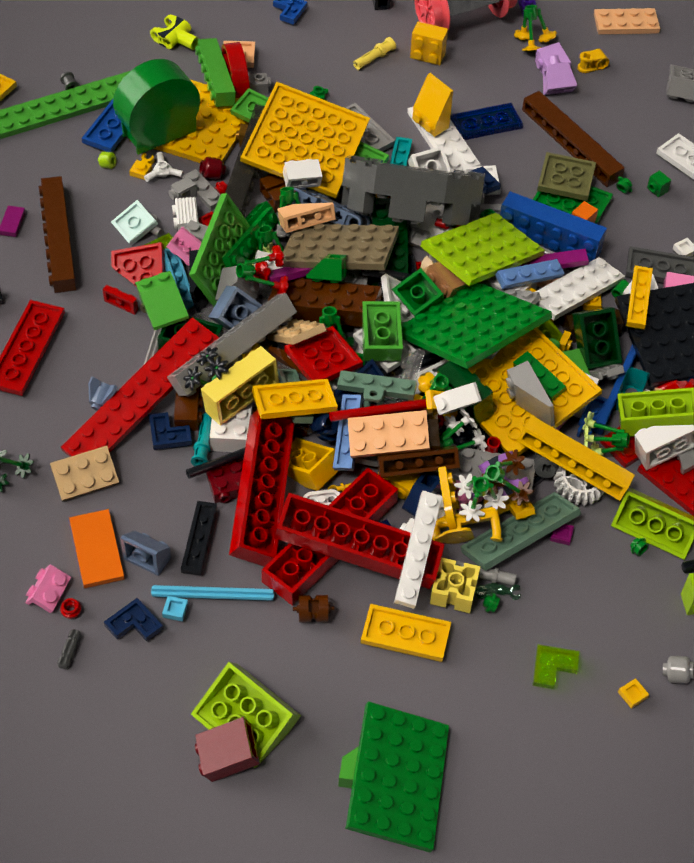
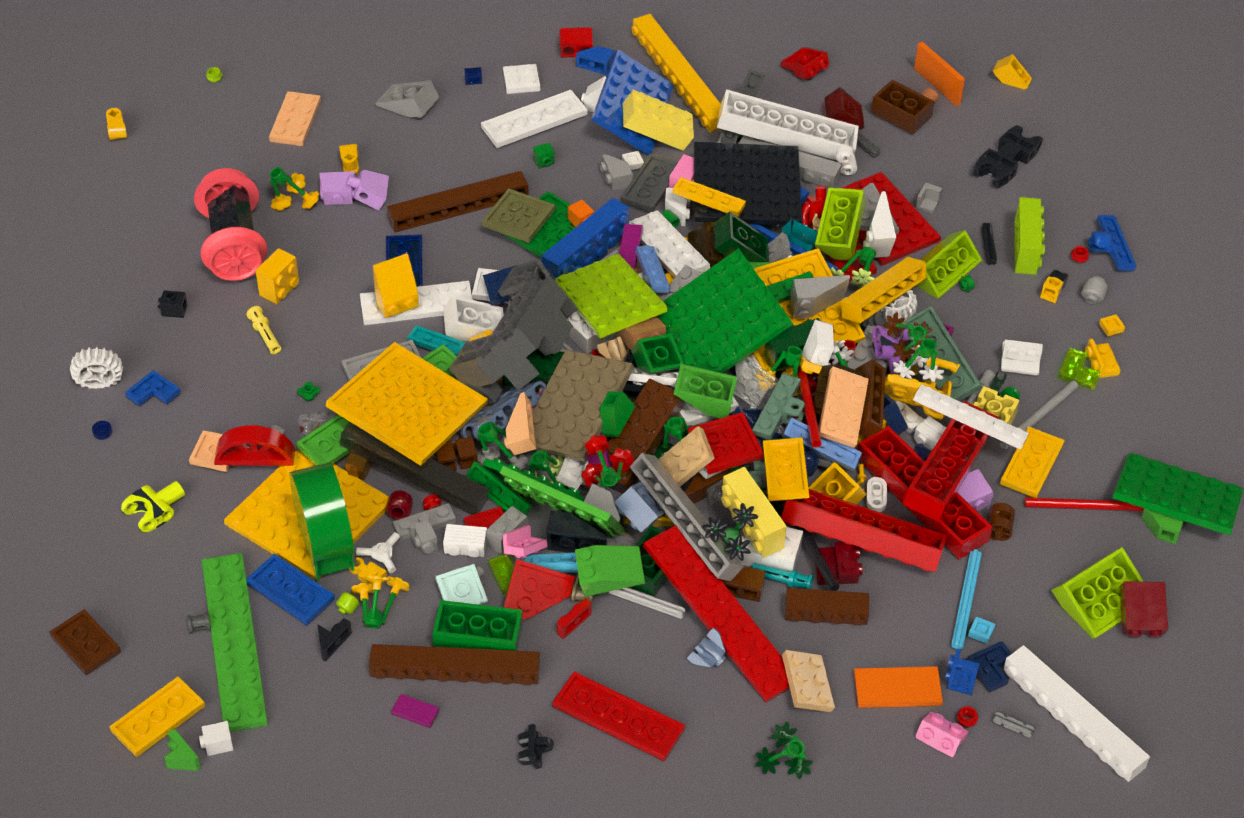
camera: 75 degrees left, 5 degrees down
(40, 29) = (85, 641): none -> reddish brown plate
(67, 156) = (333, 640): none -> black slope
(86, 701) = (1076, 713): none -> white brick
(92, 238) = (477, 626): none -> green brick
(94, 175) = (374, 618): none -> plant
(111, 585) = (961, 674): none -> blue bracket
(145, 551) = (916, 640): sand blue slope -> none
(165, 436) = (769, 608): dark blue plate -> none
(174, 478) = (827, 606): none -> reddish brown brick
(199, 538) = (903, 598): black plate -> none
(215, 72) = (244, 471): bright green brick -> none
(302, 173) = (463, 413): white brick -> none
(346, 580) = (976, 490): none -> lavender torso
(360, 667) = (1080, 504): none -> red piece
(478, 635) = (1046, 408): none -> light grey piece
(550, 607) = (1021, 357): none -> white bracket
(578, 688) = (1102, 359): none -> yellow bracket
(624, 185) = (536, 180): green plate -> none
(661, 237) = (616, 172): none -> light grey slope
(671, 629) = (1054, 286): none -> yellow leg

